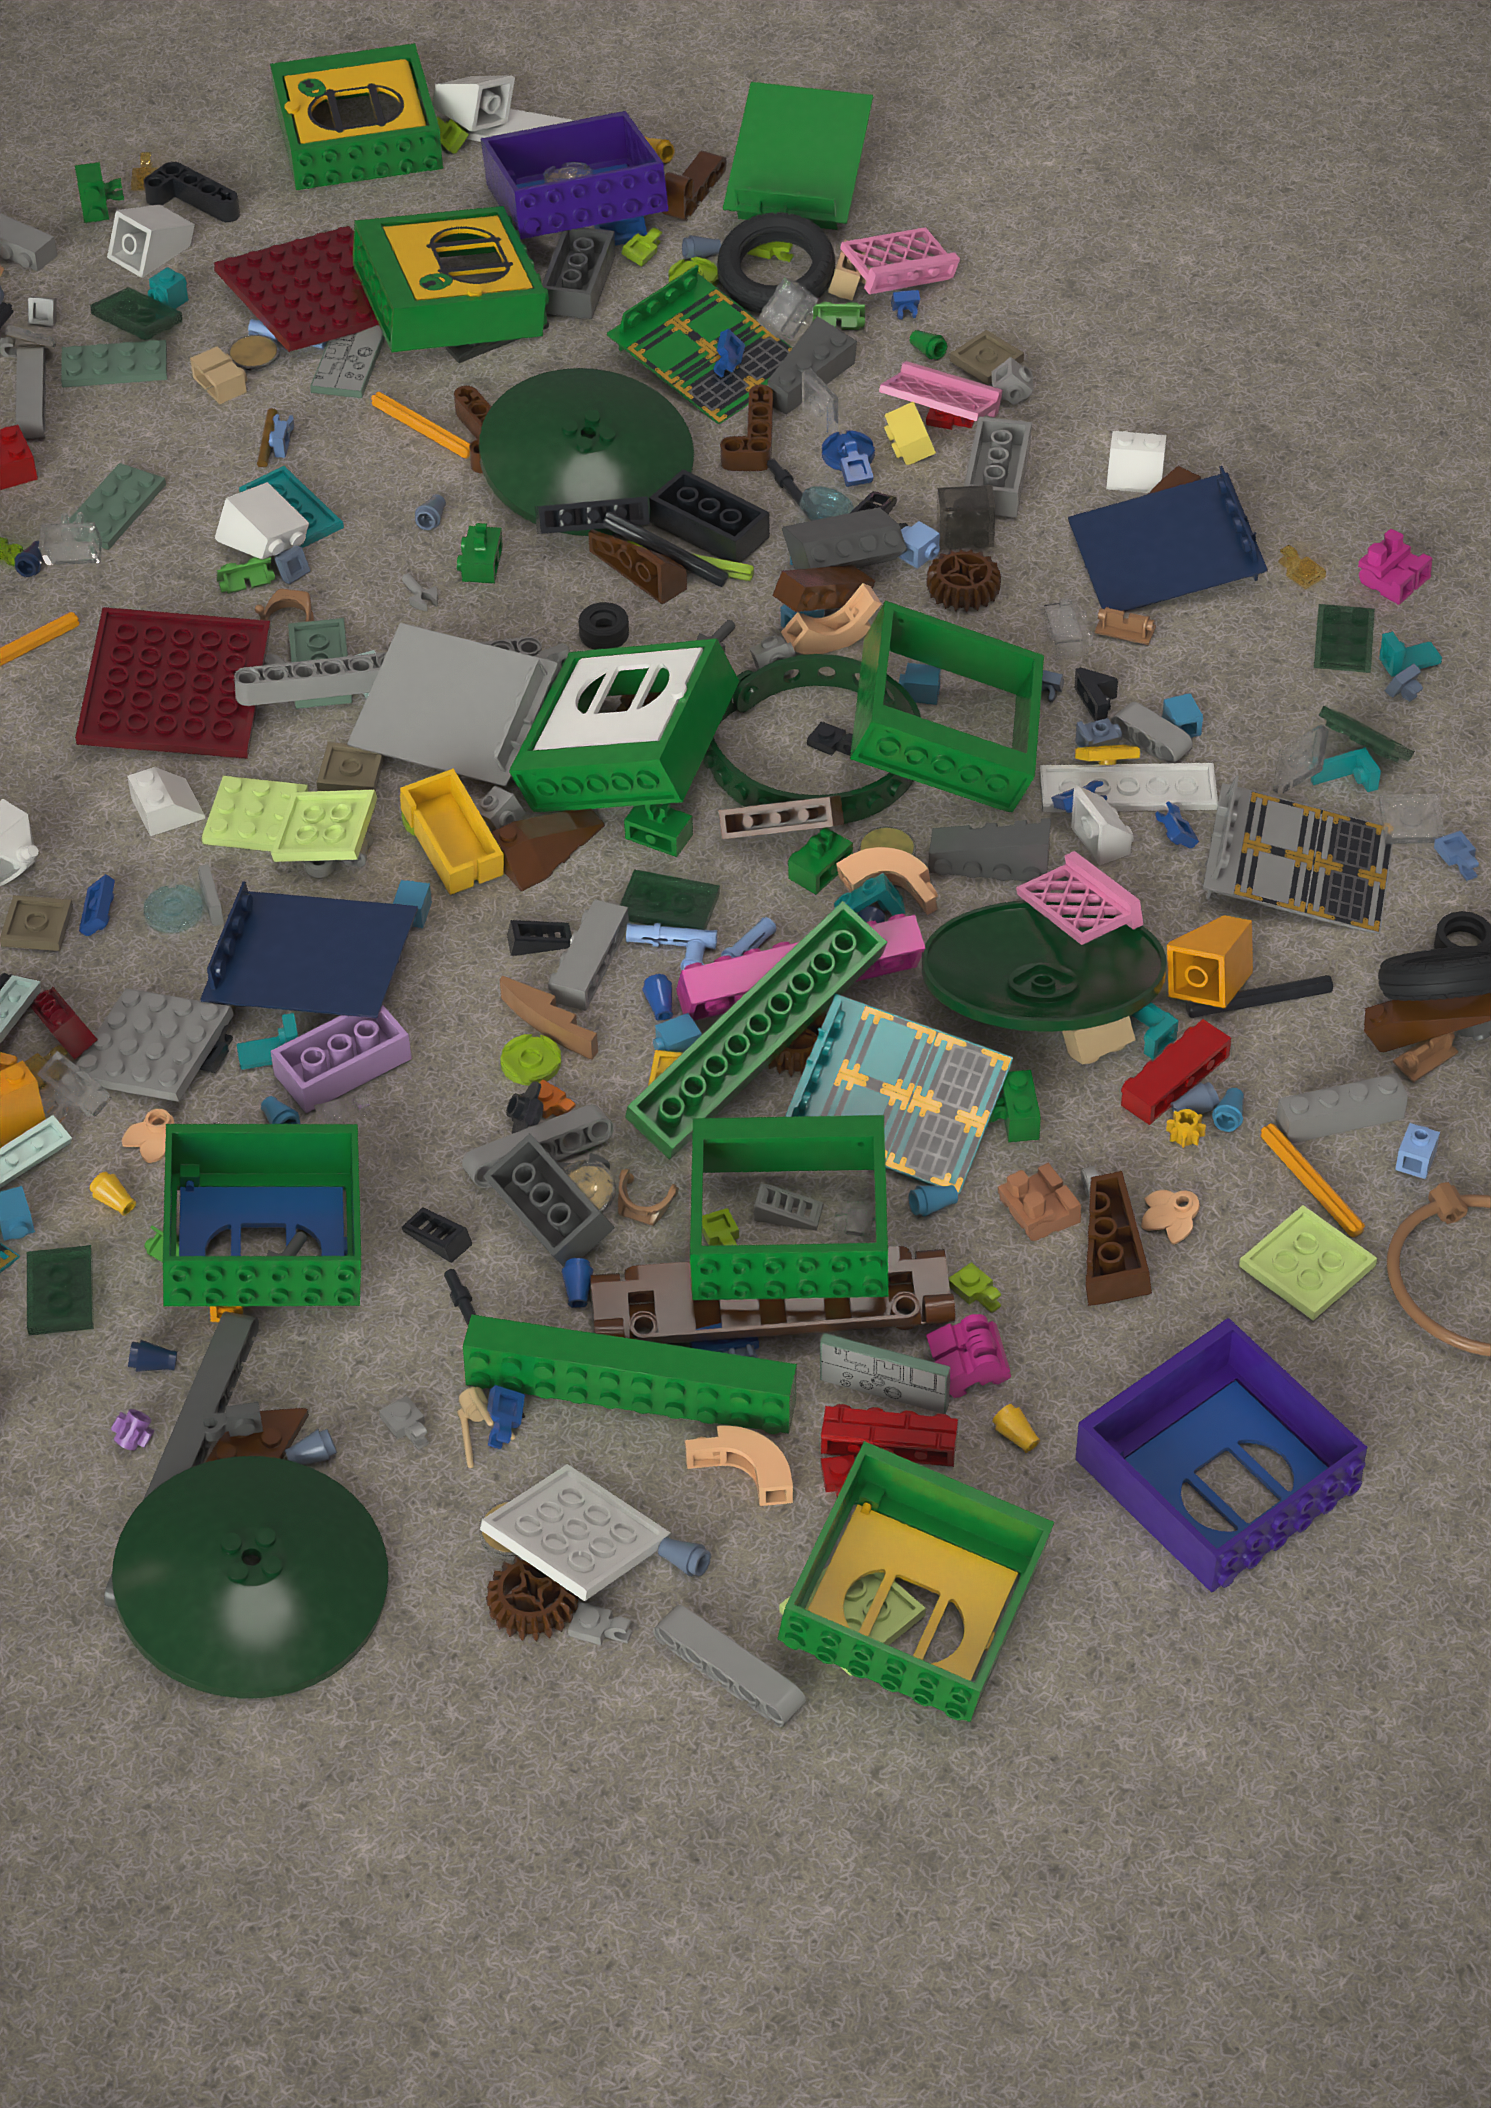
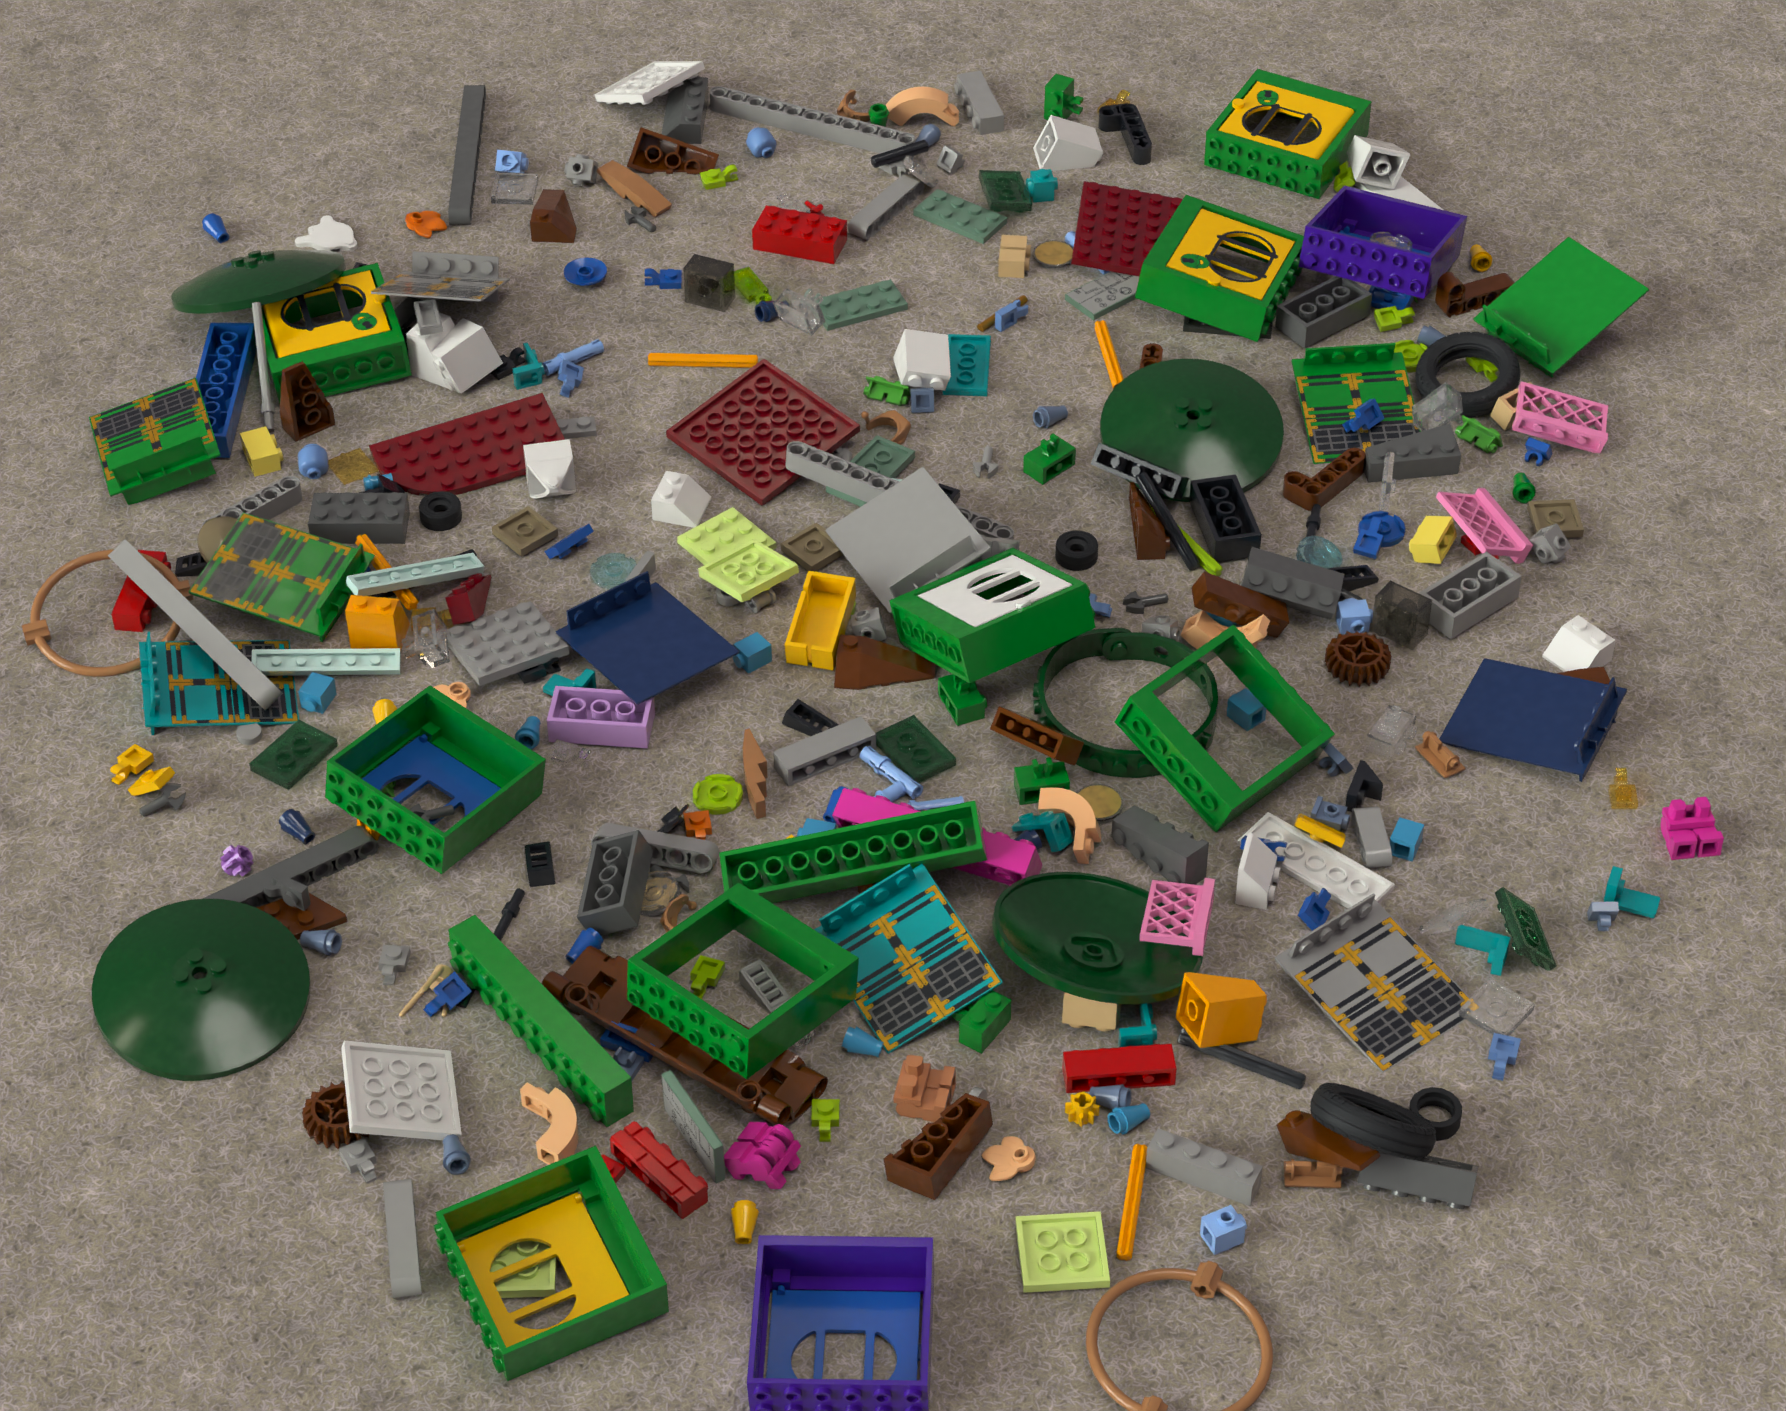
camera: 40 degrees right, 5 degrees down
(1344, 638) = (1593, 857): clear green plate -> none

